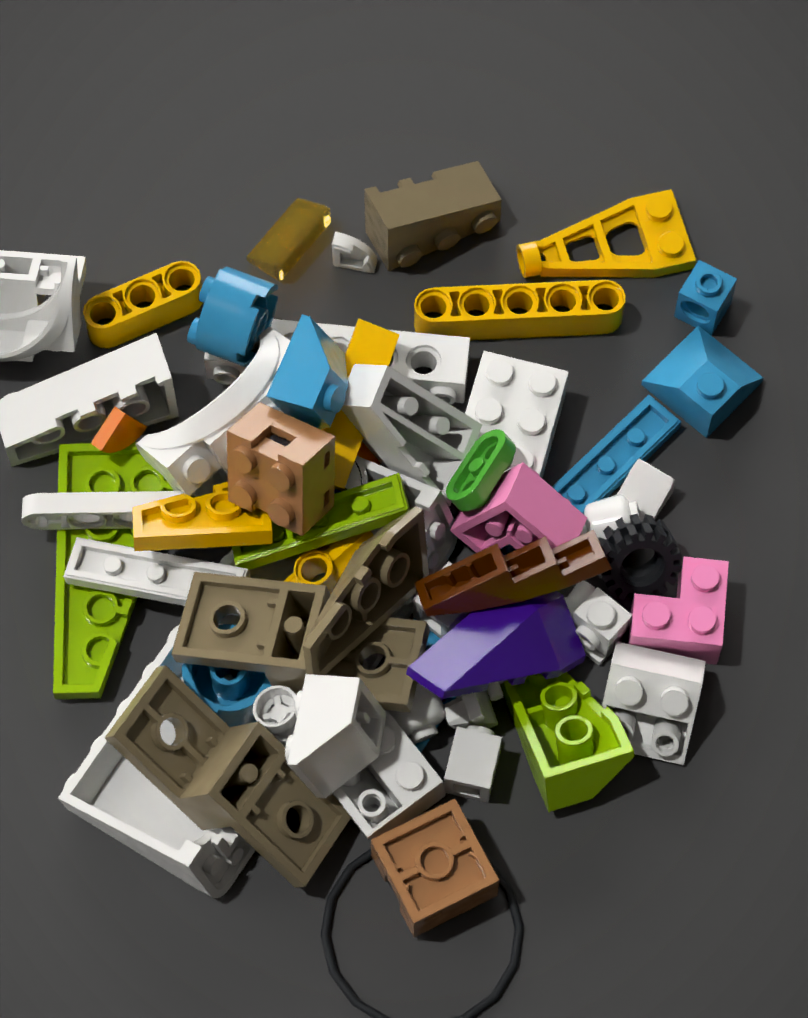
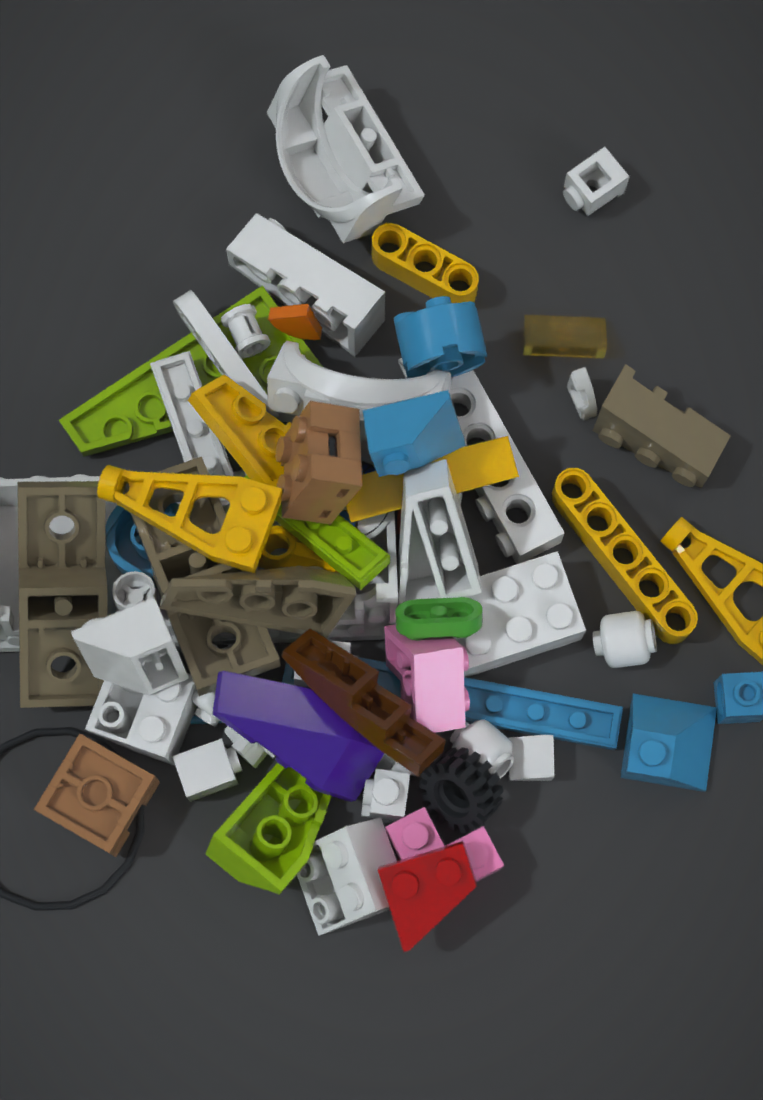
camera: 55 degrees right, 10 degrees up
(94, 476) = (245, 330): none -> white bush
(173, 126) = (599, 171): none -> white brick
(291, 558) = (245, 526): none -> yellow plate
(593, 353) = (625, 639): none -> white head
(711, 631) = (426, 889): none -> red wing

